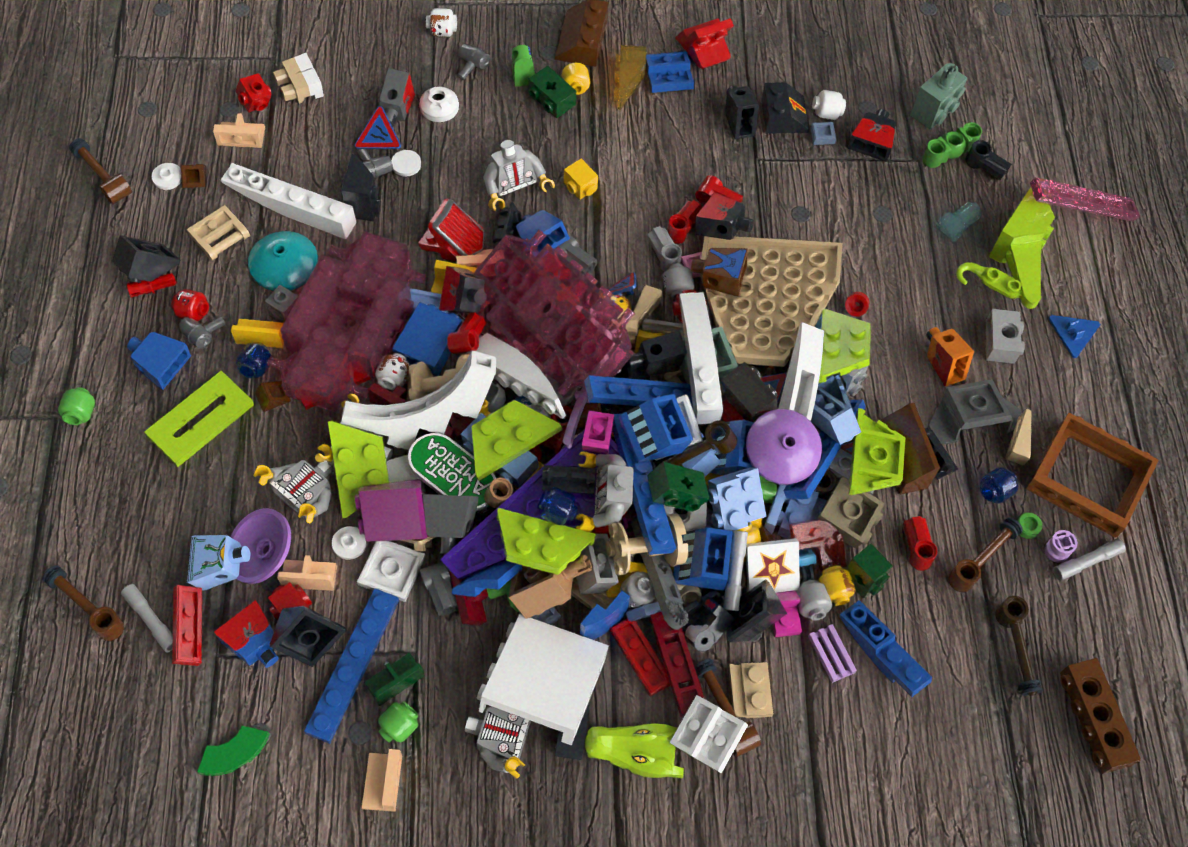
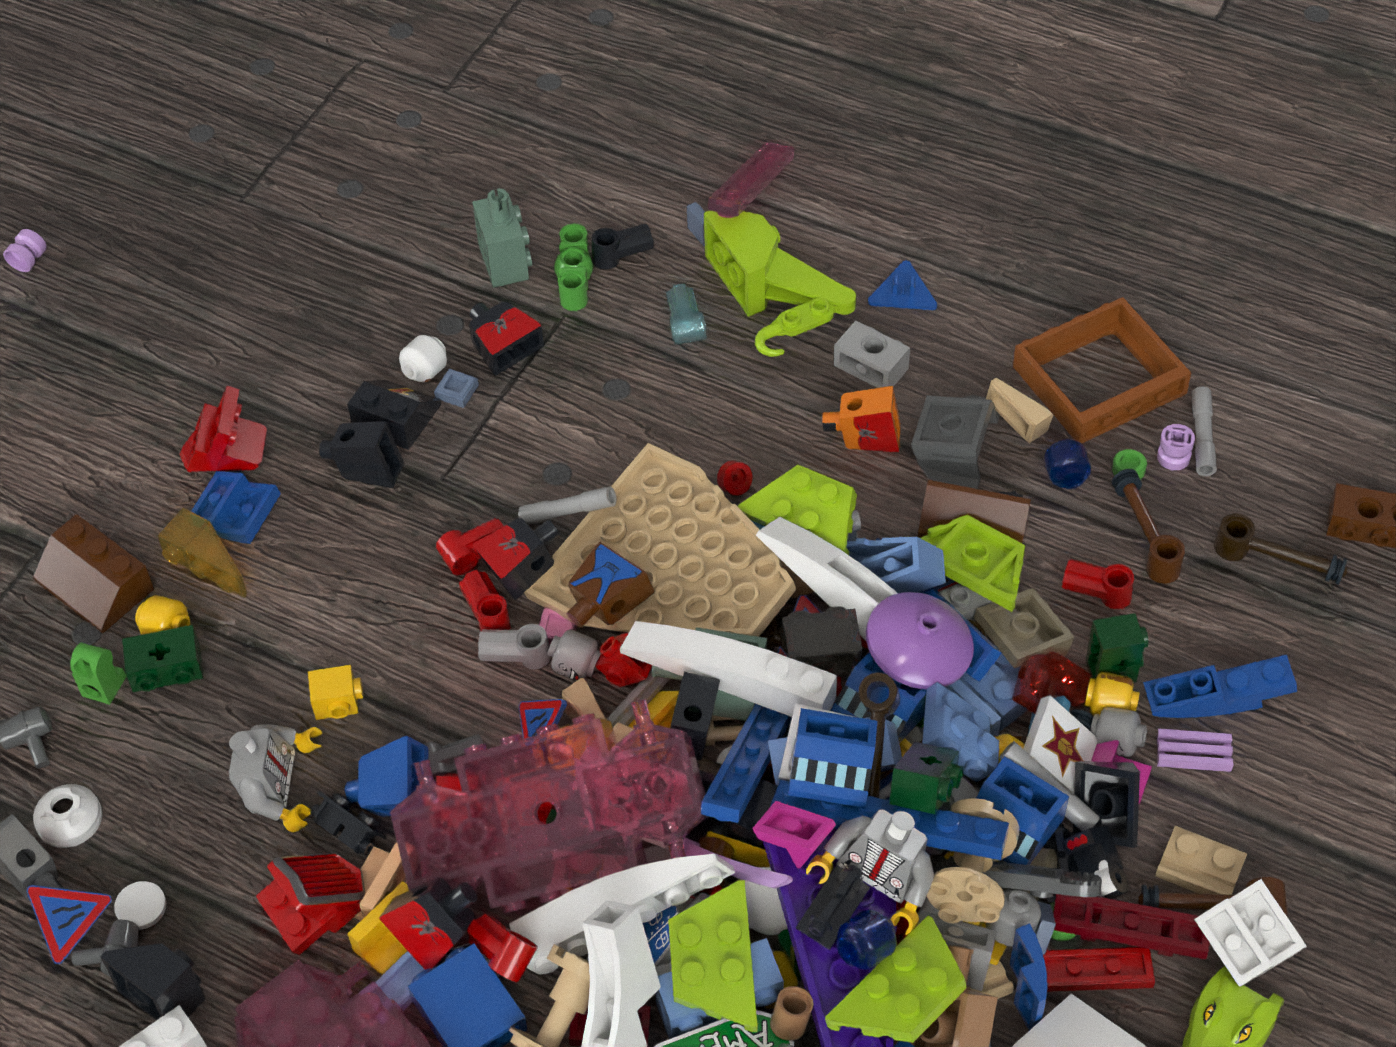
camera: 55 degrees left, 10 degrees down
(773, 226) = (586, 501): none -> light grey piece

